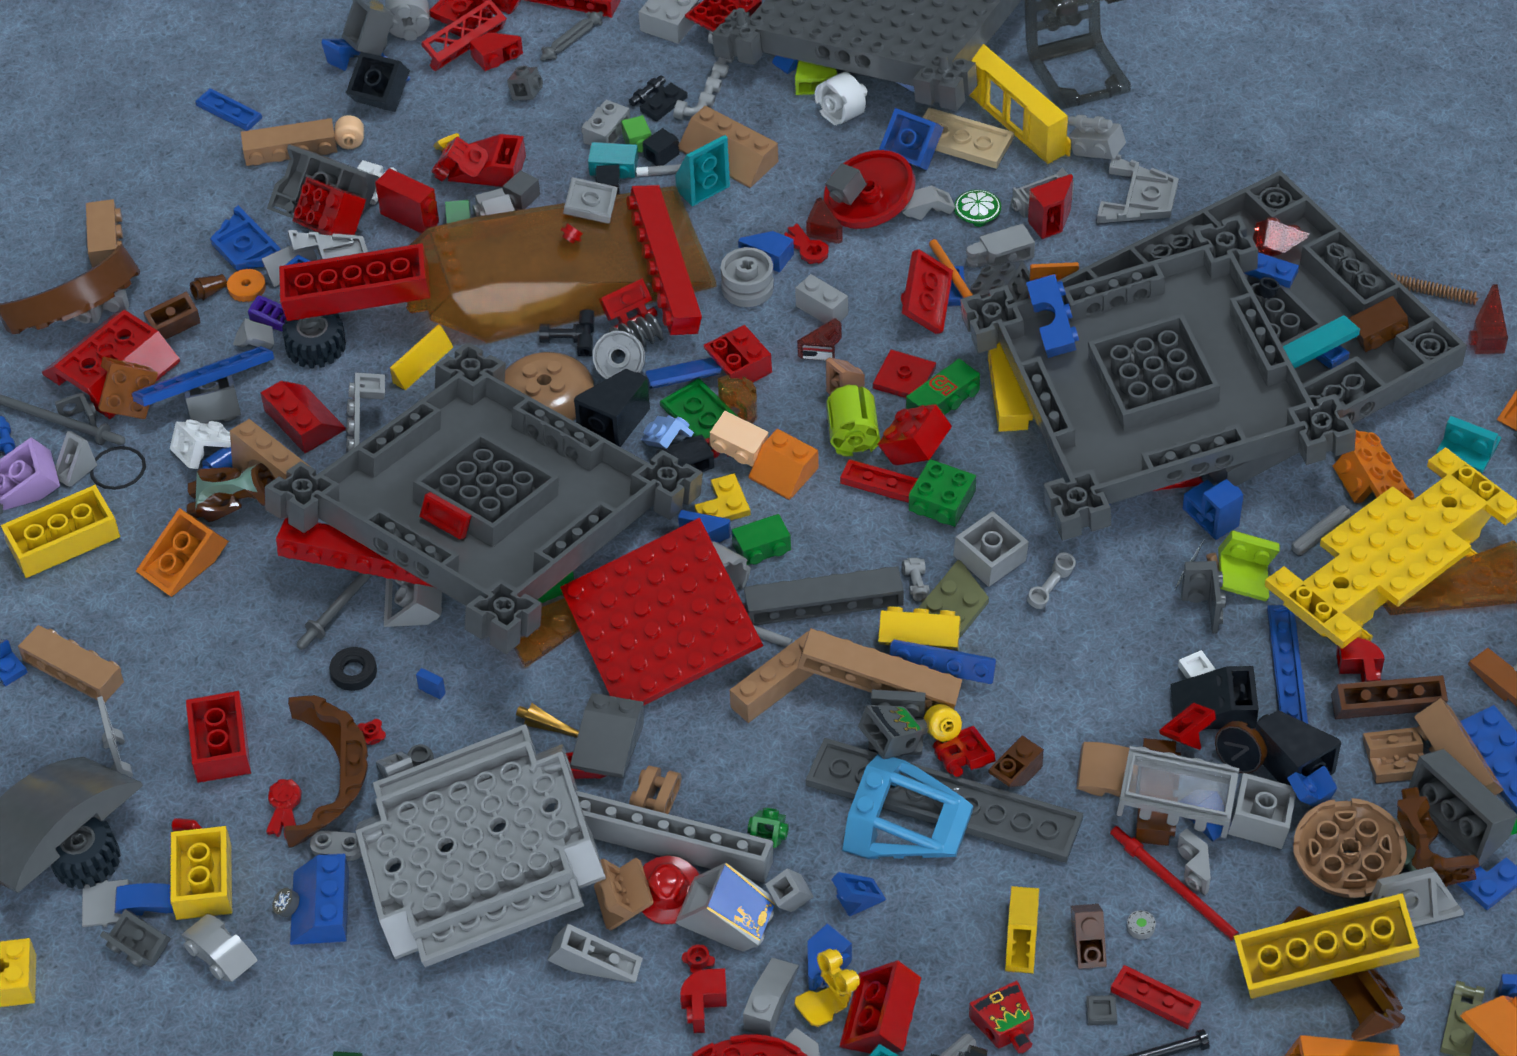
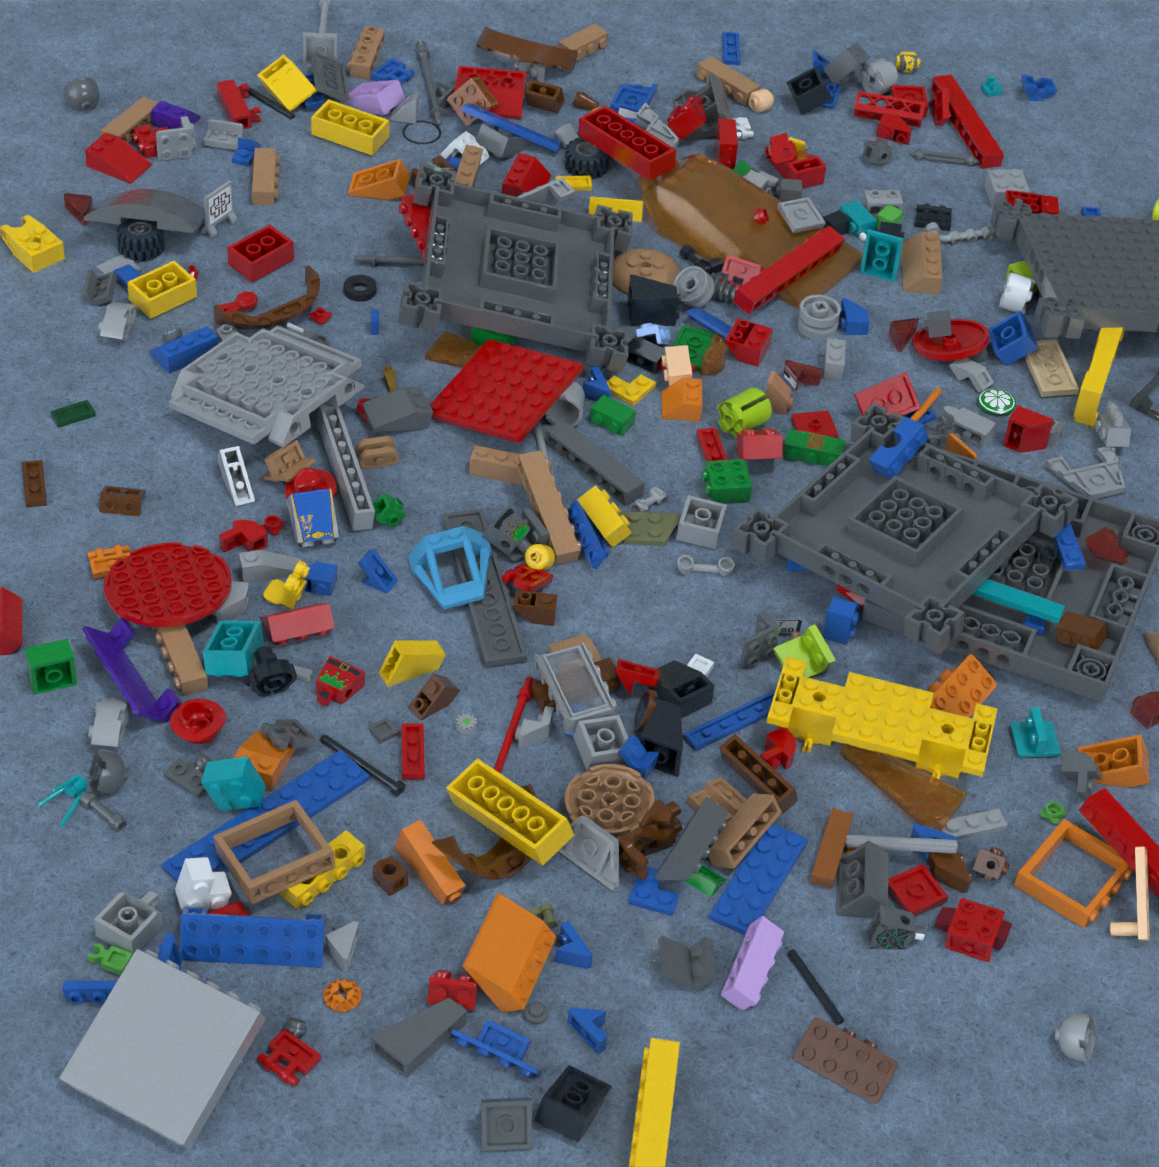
camera: 50 degrees right, 5 degrees down
(337, 372) = (578, 183): none -> yellow tile
(445, 515) = (477, 252): red tile -> none
(789, 890) = (349, 539): light grey brick -> none
(810, 250) = (877, 339): red piece -> none

